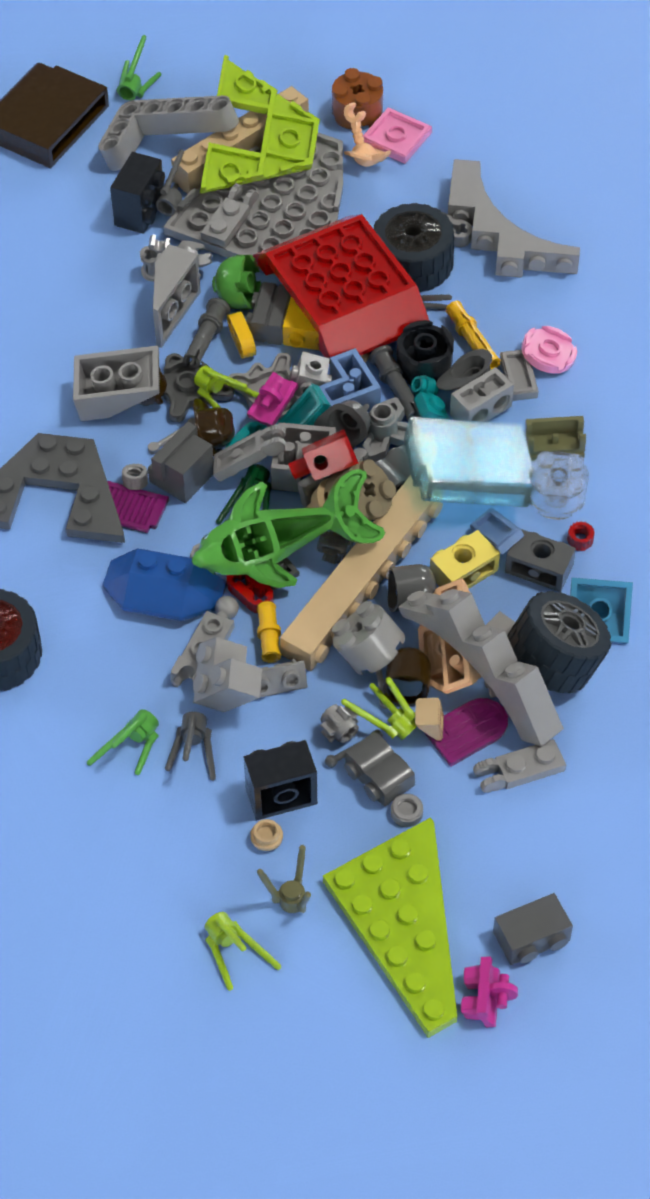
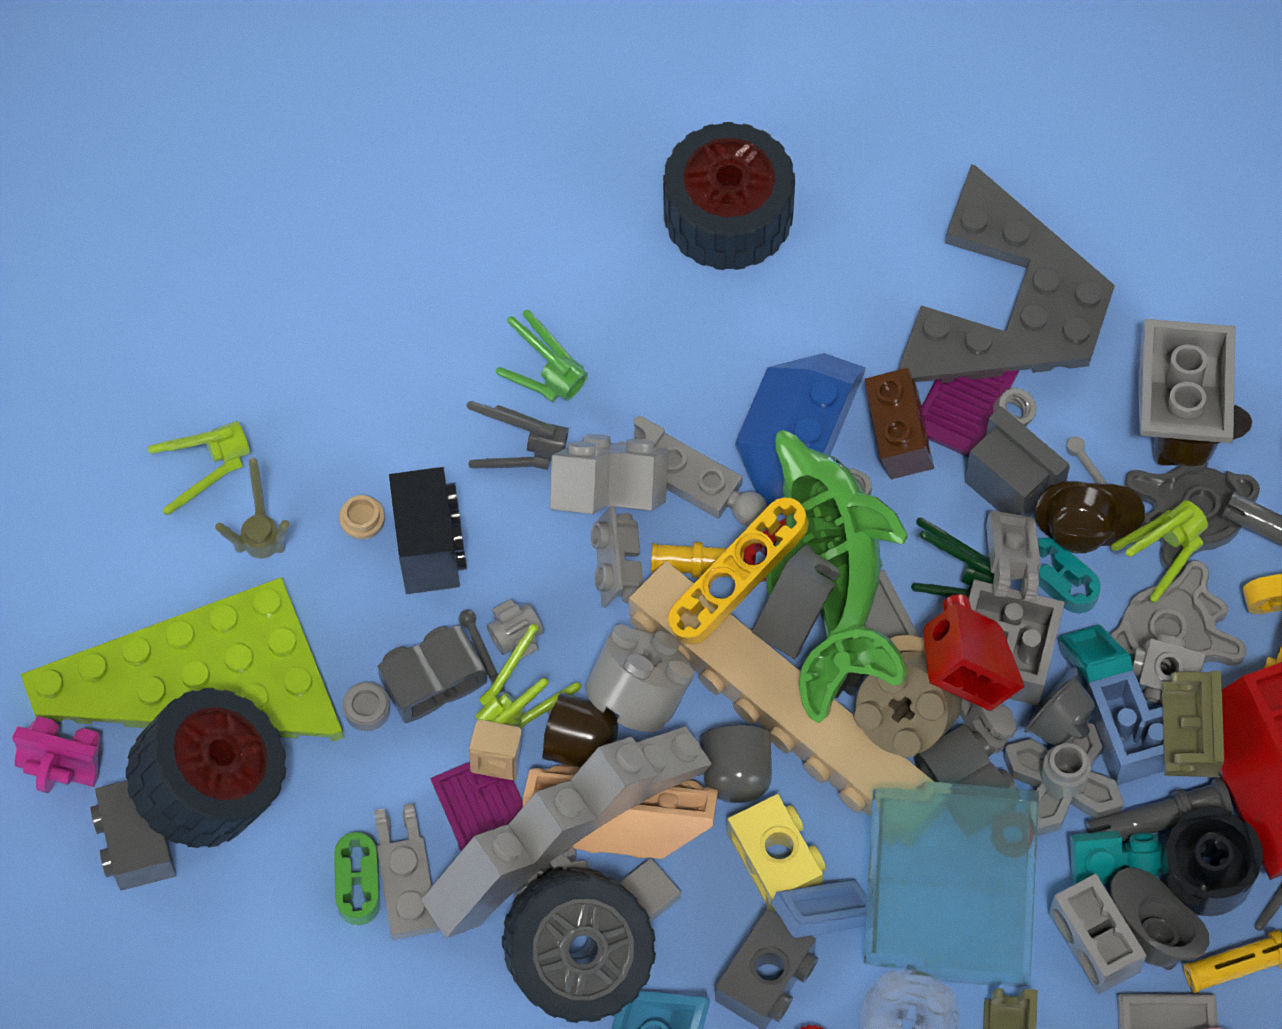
camera: 100 degrees right, 10 degrees up
(157, 527) = (899, 423): none -> reddish brown brick
(272, 400) = (1122, 606): dark pink hips -> none
(291, 582) = (745, 576): none -> yellow beam
(304, 553) = (796, 601): none -> dark grey hinge
(352, 348) = (1193, 724): none -> olive hinge
(488, 874) = (205, 768): none -> black wheel
(531, 794) = (367, 878): none -> bright green beam

